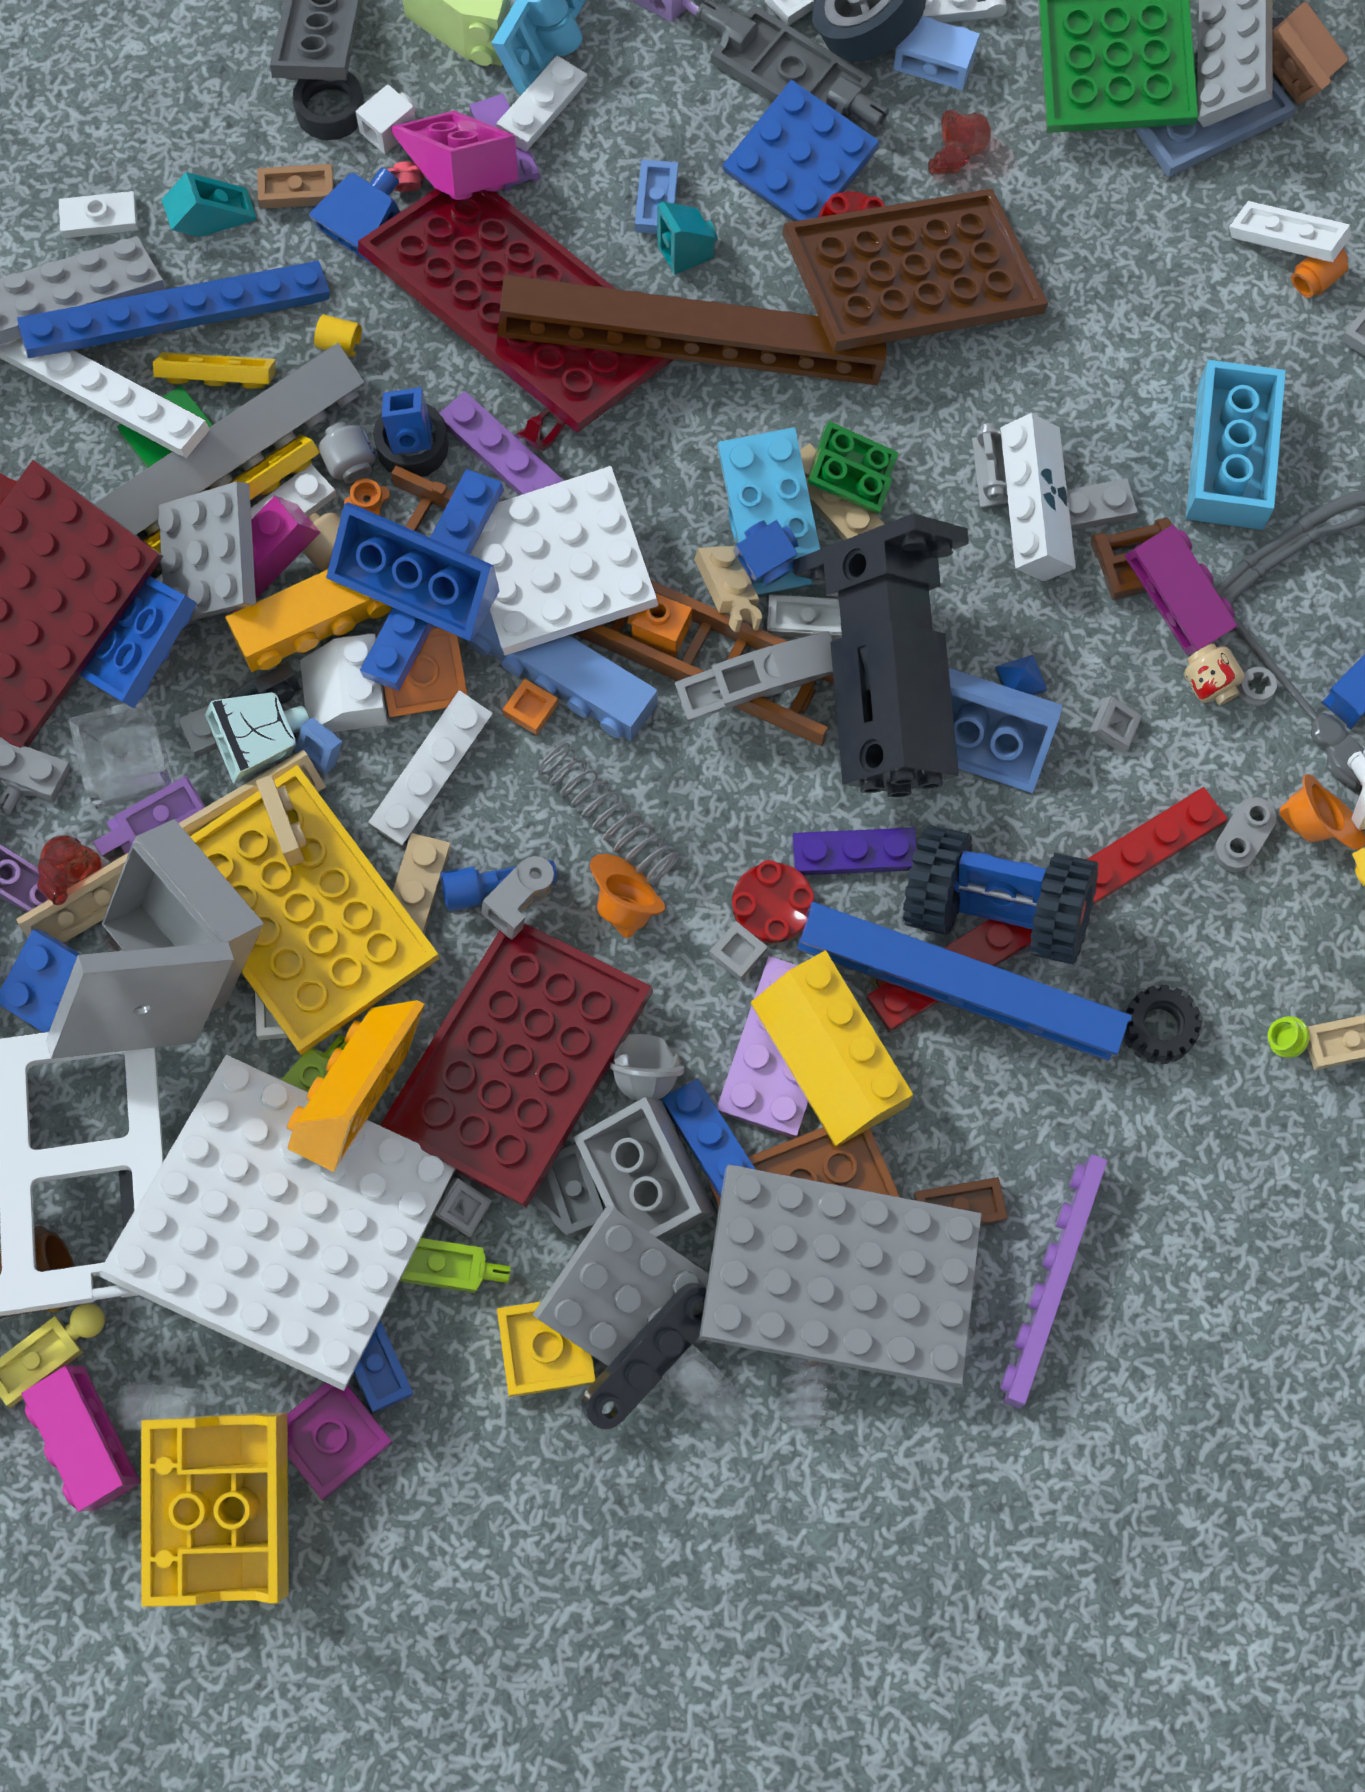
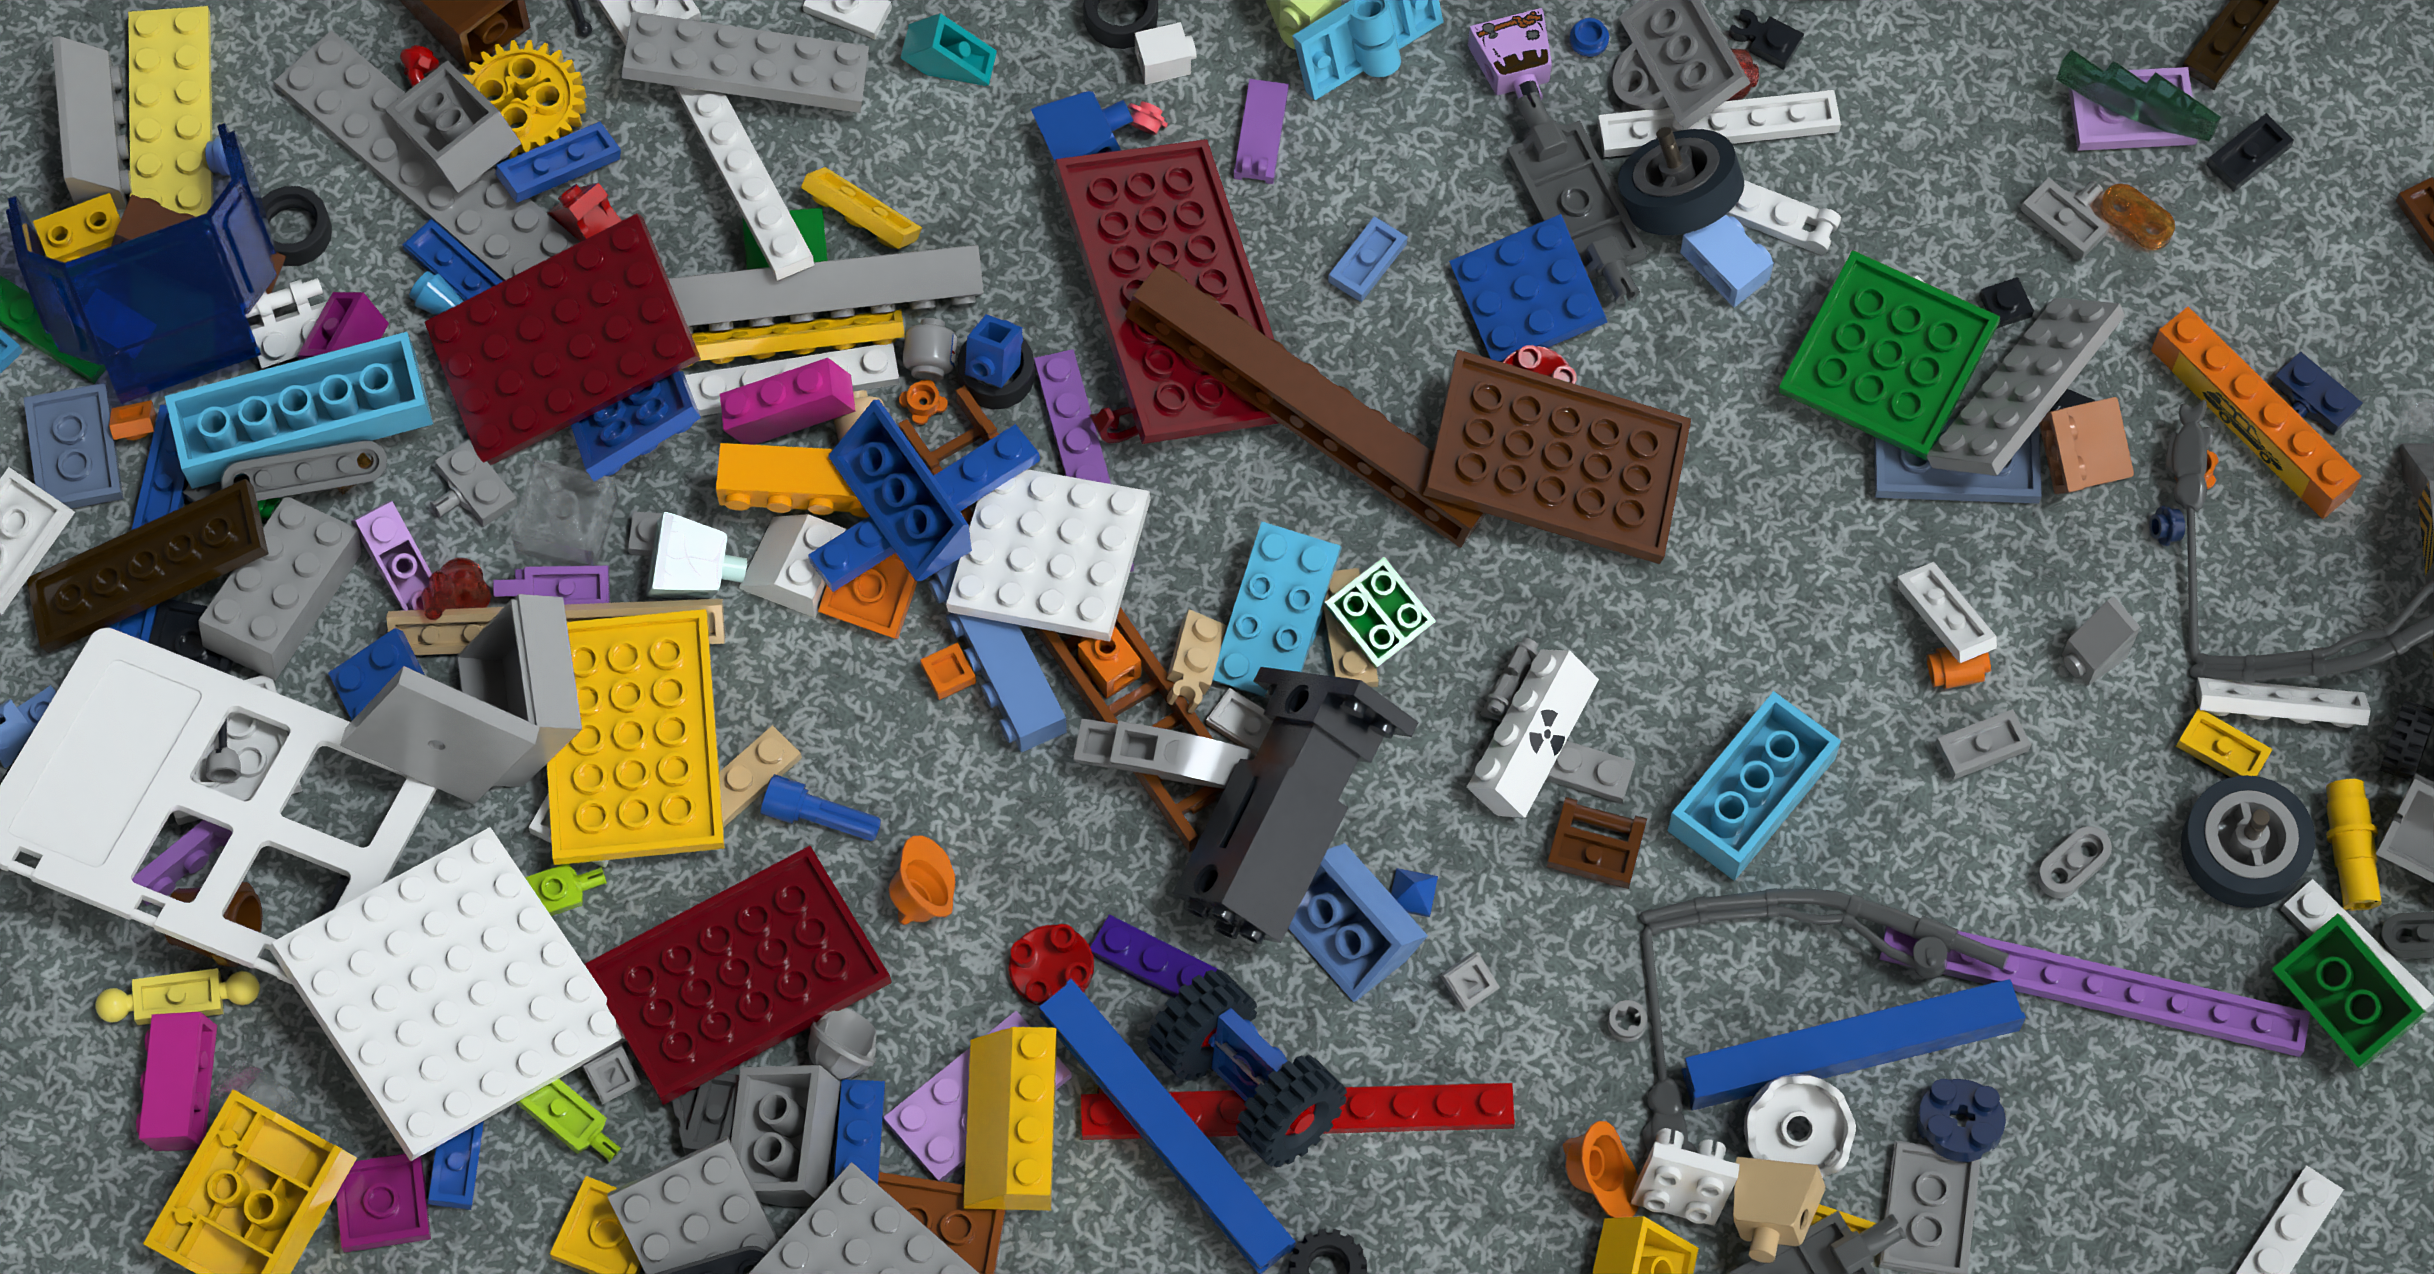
camera: 30 degrees right, 5 degrees down
(172, 309) = (856, 134): blue plate -> none
(210, 549) = (742, 375): light grey plate -> none
(279, 680) = (739, 526): black plate -> none
(289, 835) = (656, 666): tan plate -> none
(294, 185) = (1040, 72): medium nougat plate -> none
(319, 744) = (739, 602): medium blue plate -> none
(337, 330) = (990, 235): yellow beam -> none
(353, 1083) = (581, 912): light orange slope -> none
(429, 768) = (824, 677): white plate -> none
(459, 153) = (1203, 122): dark pink slope -> none
(524, 885) = (826, 827): light grey leg -> none
(542, 102) = (1317, 112): white plate -> none
(604, 817) = (969, 870): light grey piece -> none
(684, 236) = (1366, 311): teal slope -> none
(738, 951) = (992, 991): light grey plate -> none
(767, 552) = (1242, 646): blue brick -> none
(962, 137) = (1697, 354): clear red piece -> none
(1181, 589) = (1608, 890): magenta brick -> none
(1214, 674) = (1588, 986): tan head -> none
(1246, 833) = (1524, 1147): light grey plate -> none

